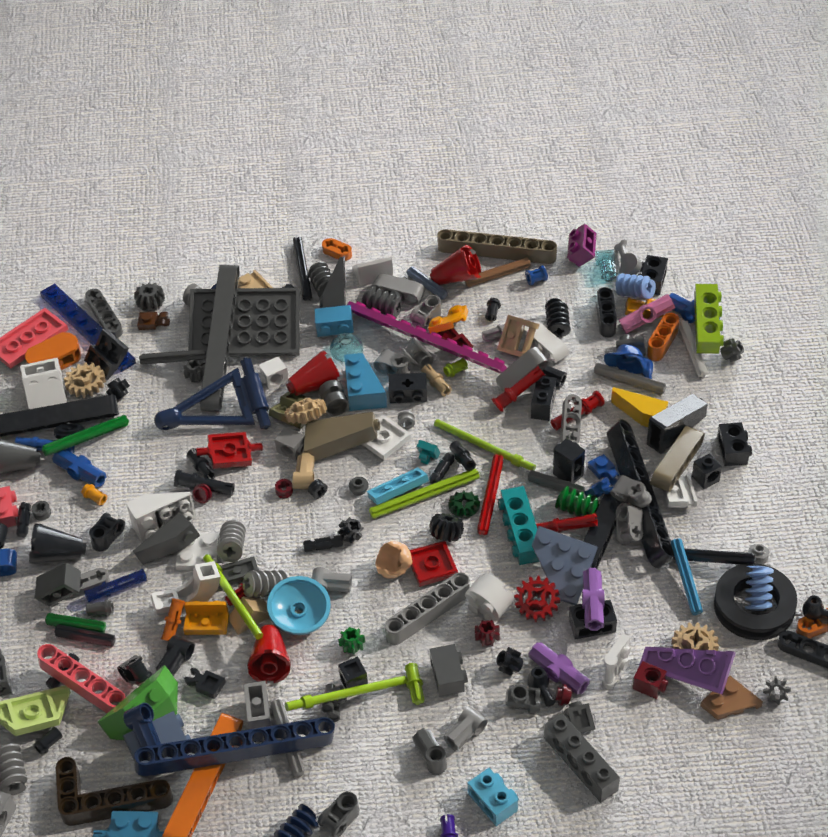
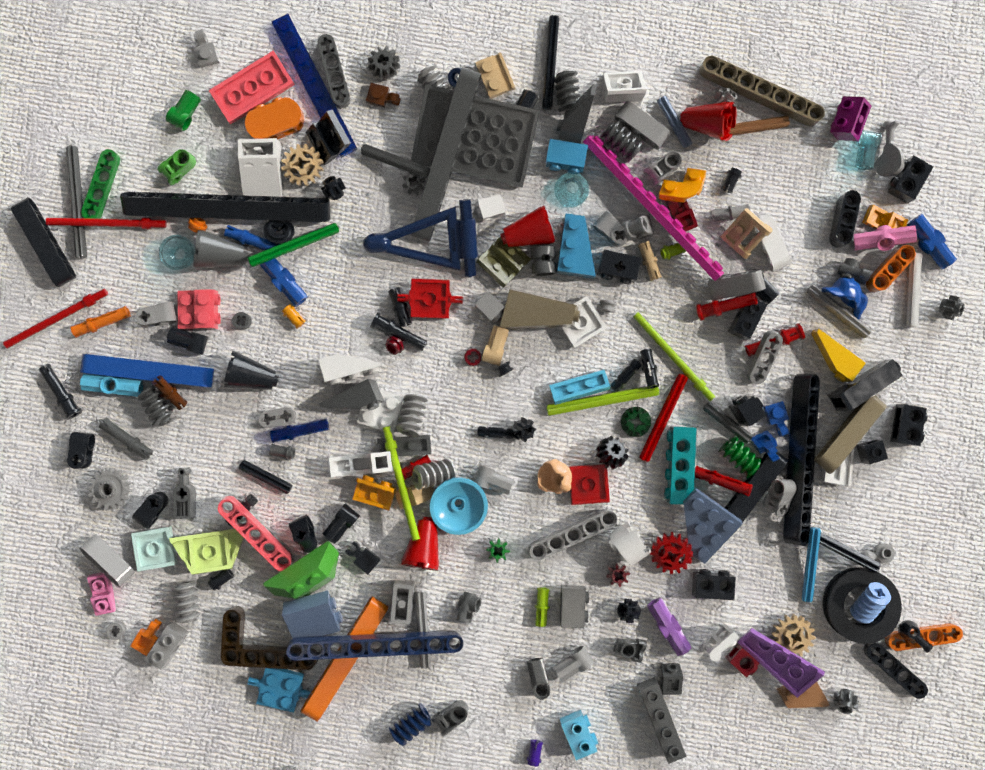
camera: 10 degrees right, 40 degrees up
(23, 519) = (224, 327): black axle -> none
(56, 619) = (258, 461): green axle -> none
(58, 584) = (246, 423): dark grey brick -> none
(105, 532) = (299, 364): black piece -> none
(140, 720) = (298, 617): dark blue piece -> none
(172, 619) = (344, 488): orange pin -> none
(305, 410) = (511, 281): tan gear -> none
(309, 701) = (446, 620): lime bar -> none
(336, 249) = (589, 47): orange beam -> none
(352, 673) = (490, 591): black brick -> none
(358, 485) = (548, 369): dark grey plate -> none
(427, 451) = (618, 352): teal tile -> none
(536, 275) = (783, 145): blue bush -> none
(541, 682) = (643, 626): black bar -> none
(557, 317) = (792, 215): black piece -> none
(563, 695) = (665, 654): dark red plate -> none
(593, 599) = (720, 579): medium lavender piece -> none
(631, 492) = (790, 468): light grey piece -> none
(635, 286) = (884, 197): light blue piece -> none
(707, 319) = (927, 293): lime brick -> none

